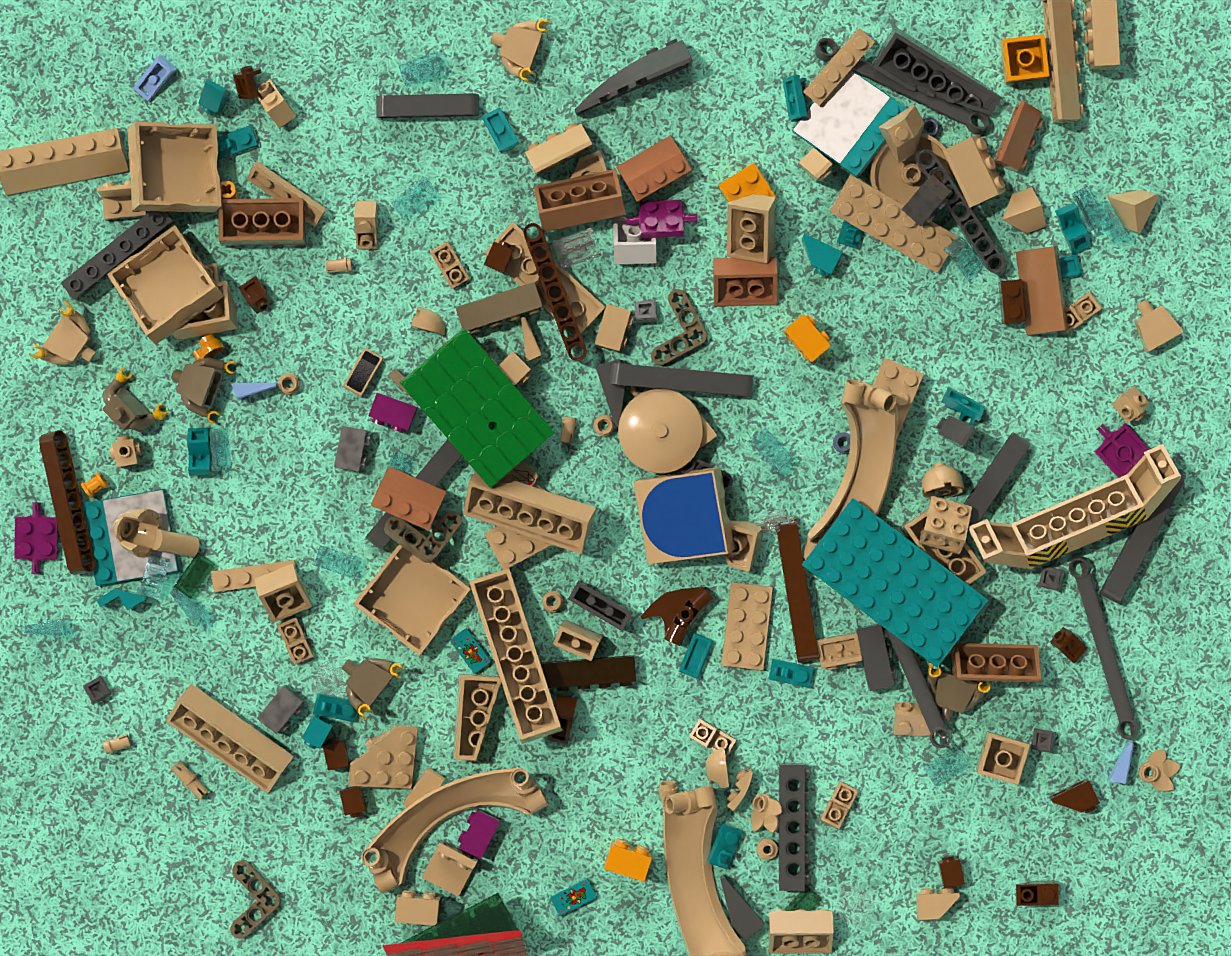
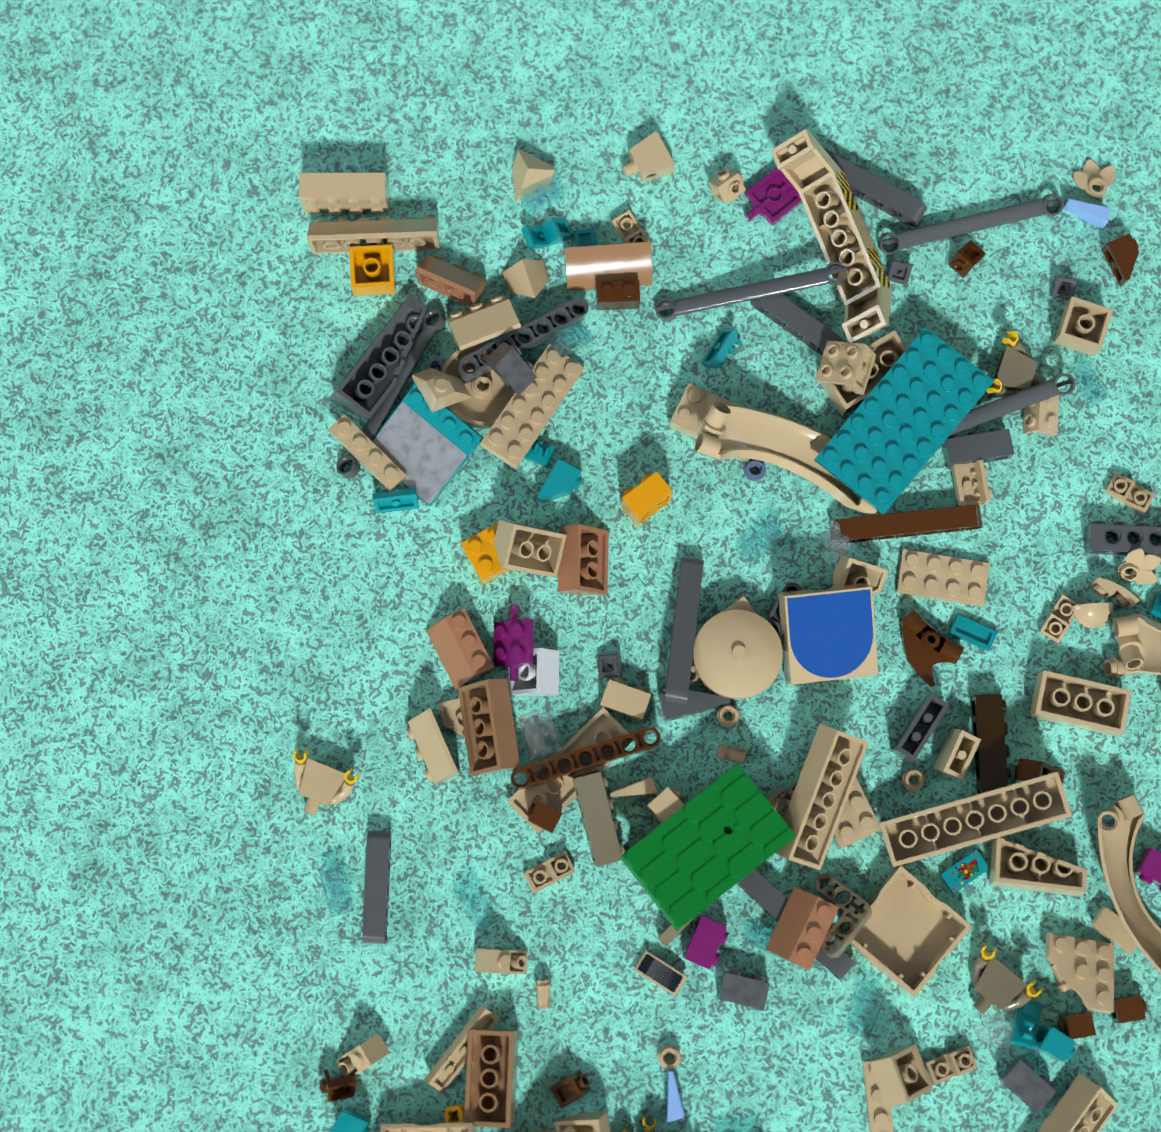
camera: 85 degrees left, 10 degrees down
(236, 142) = (401, 1102): teal plate -> none
(429, 321) = (608, 898): tan brick -> none
(500, 130) = (409, 809): teal plate -> none
(631, 755) = (1080, 703): none -> tan brick
(640, 73) = (358, 656): dark grey wedge -> none
(687, 327) = (630, 622): dark tan beam -> none
(790, 673) = (992, 535): teal plate -> none
(816, 165) = (467, 481): tan slope -> none
(942, 481) = (798, 371): tan cylinder -> none
(954, 430) = (749, 353): dark grey slope -> none
(996, 662) = (988, 324): medium nougat slope -> none
(1020, 431) = (751, 291): none -> dark grey piece
(1088, 208) = (527, 215): clear light blue slope -> none

